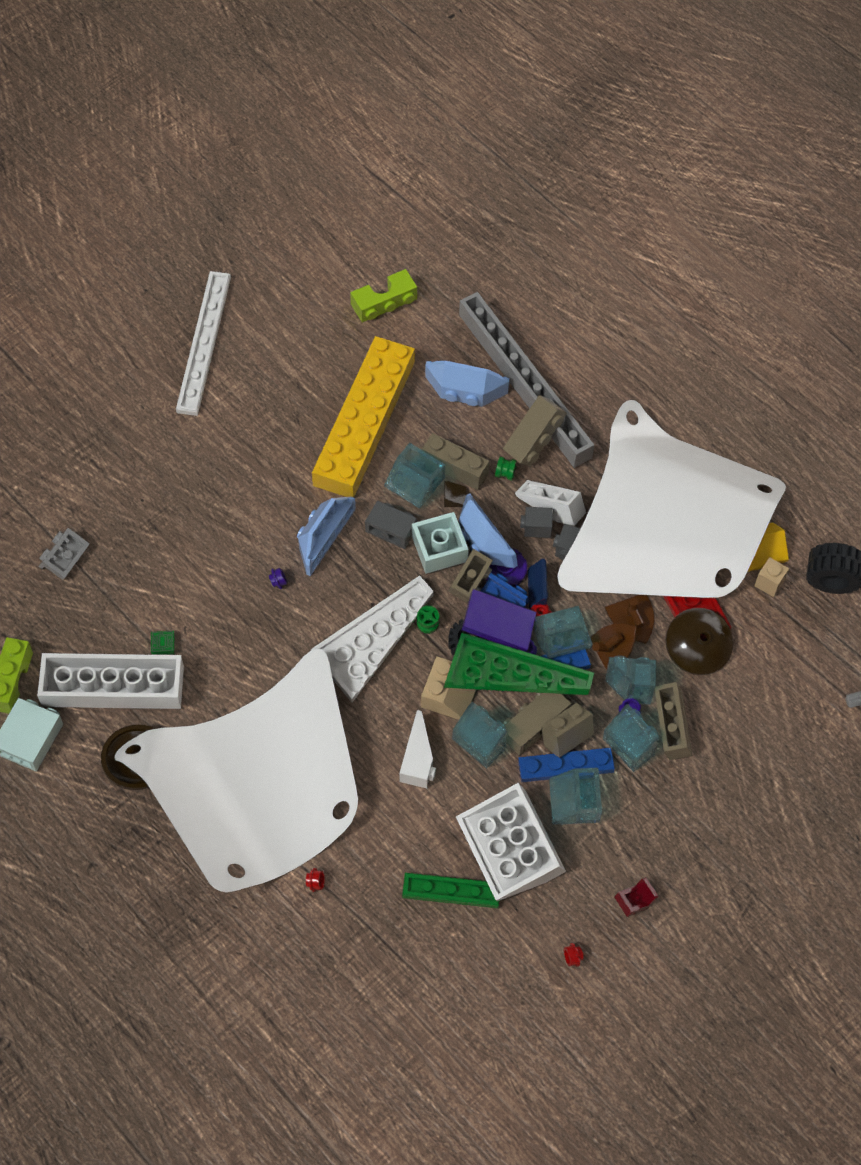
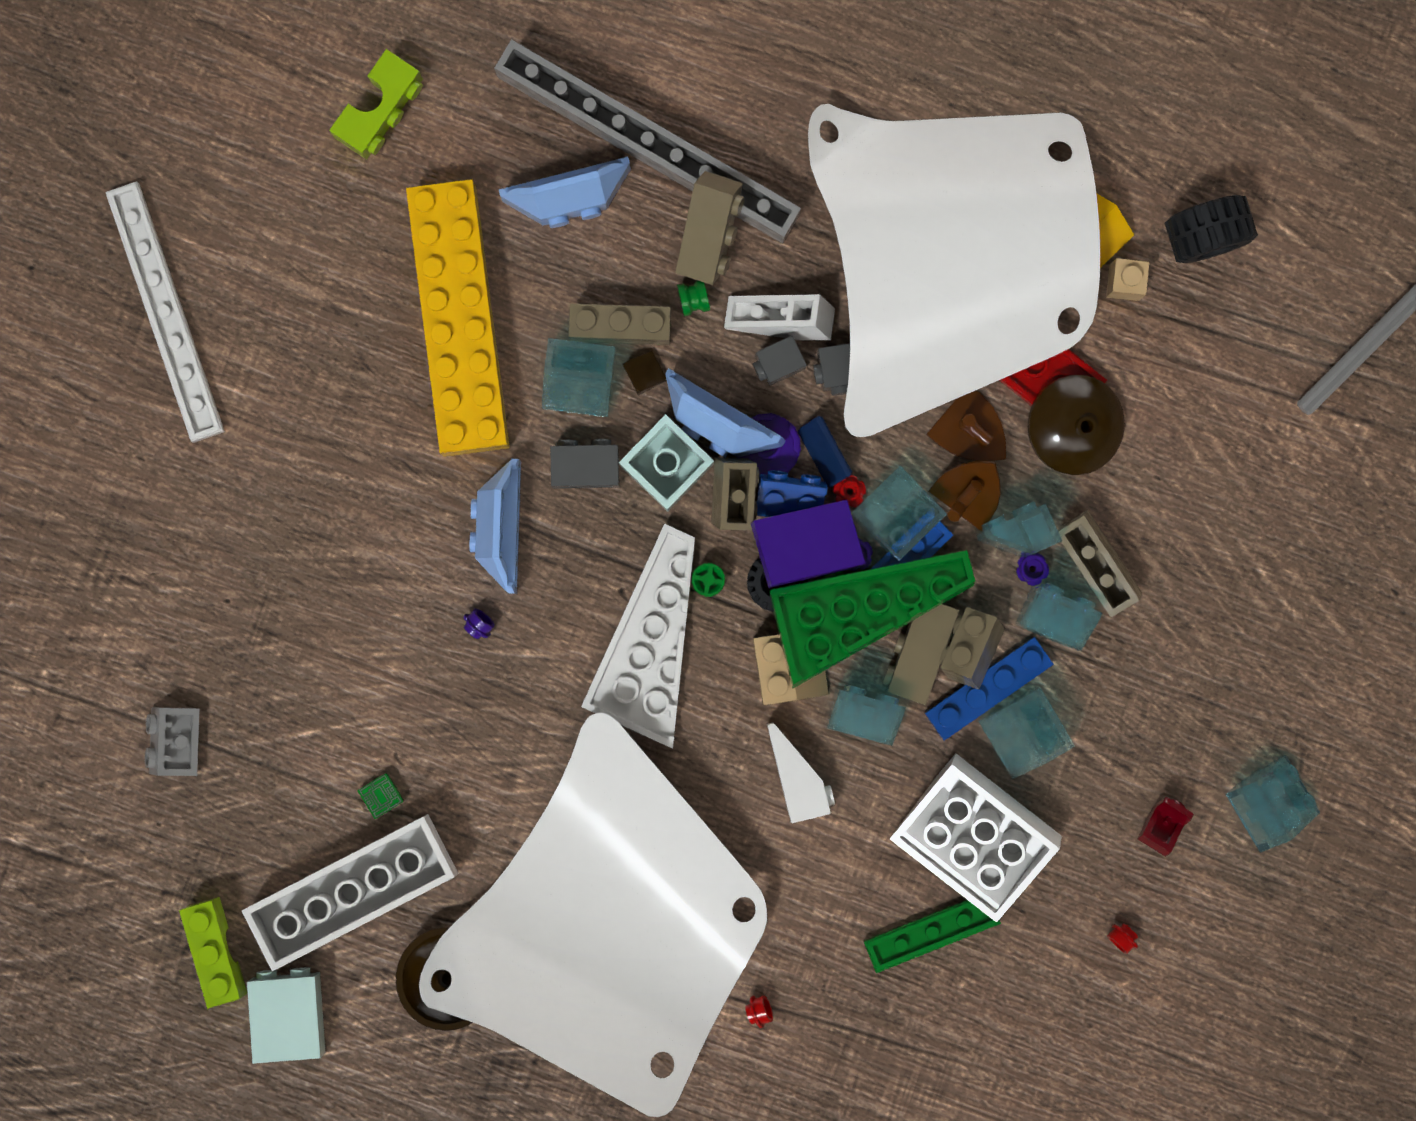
camera: 30 degrees left, 25 degrees up
(714, 920) = (1273, 804): none -> clear light blue slope

